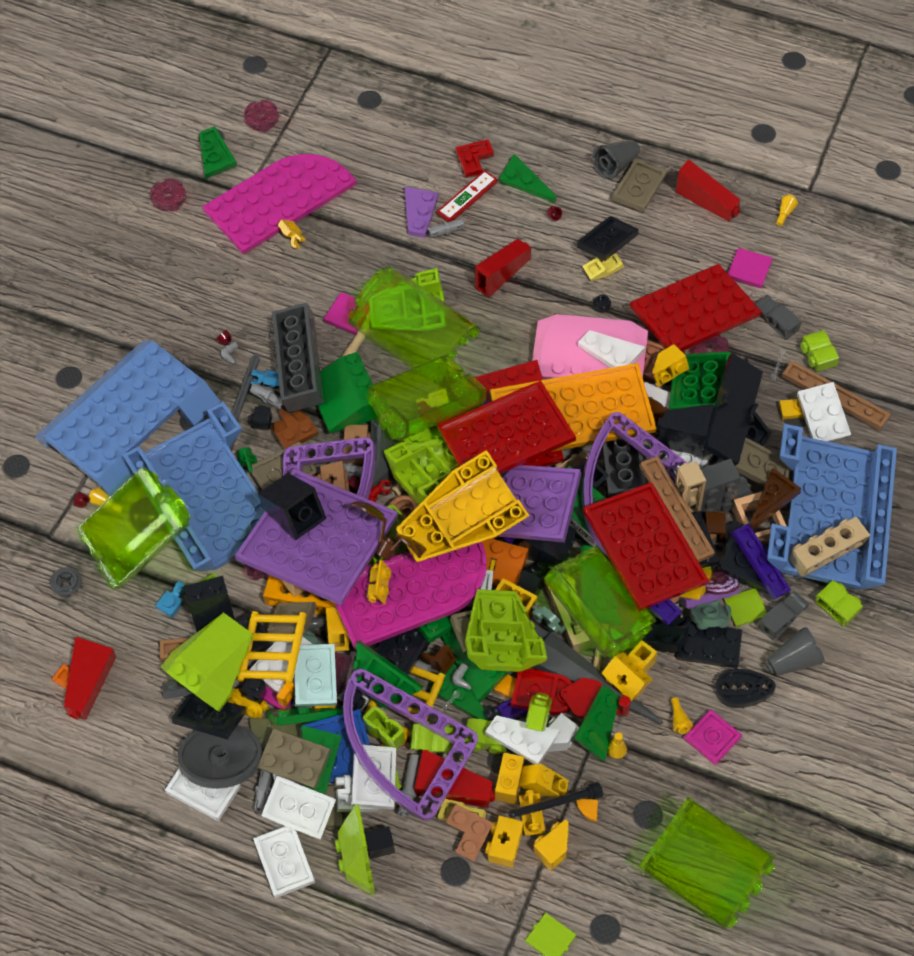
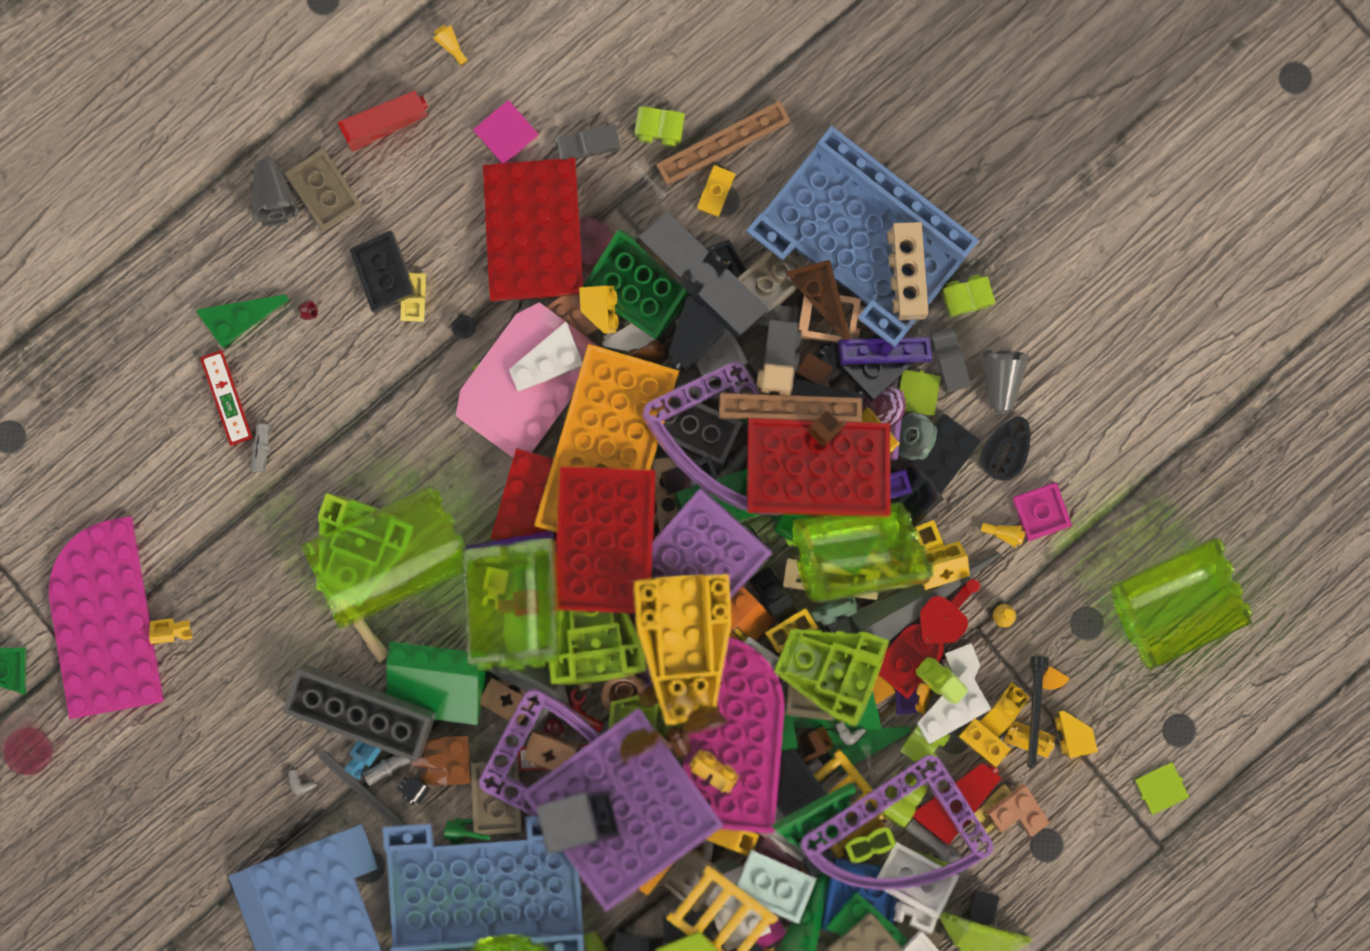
camera: 70 degrees left, 25 degrees up
(224, 338) = (275, 780): dark red hinge -> none
(286, 694) = (777, 928): light orange tile -> none
(340, 311) = (315, 623): dark pink tile -> none
(420, 210) = (215, 463): medium lavender wing -> none
(471, 154) = (167, 363): red plate -> none
(491, 712) = (905, 721): black plate -> none
(501, 267) = (355, 412): red slope -> none
(504, 853) = (1059, 785): yellow brick -> none
(519, 714) = (925, 696): none -> light orange tile
(598, 723) = (978, 622): green wing -> none
(675, 534) = (825, 428): none -> reddish brown panel
(824, 413) = (742, 172): white plate -> none

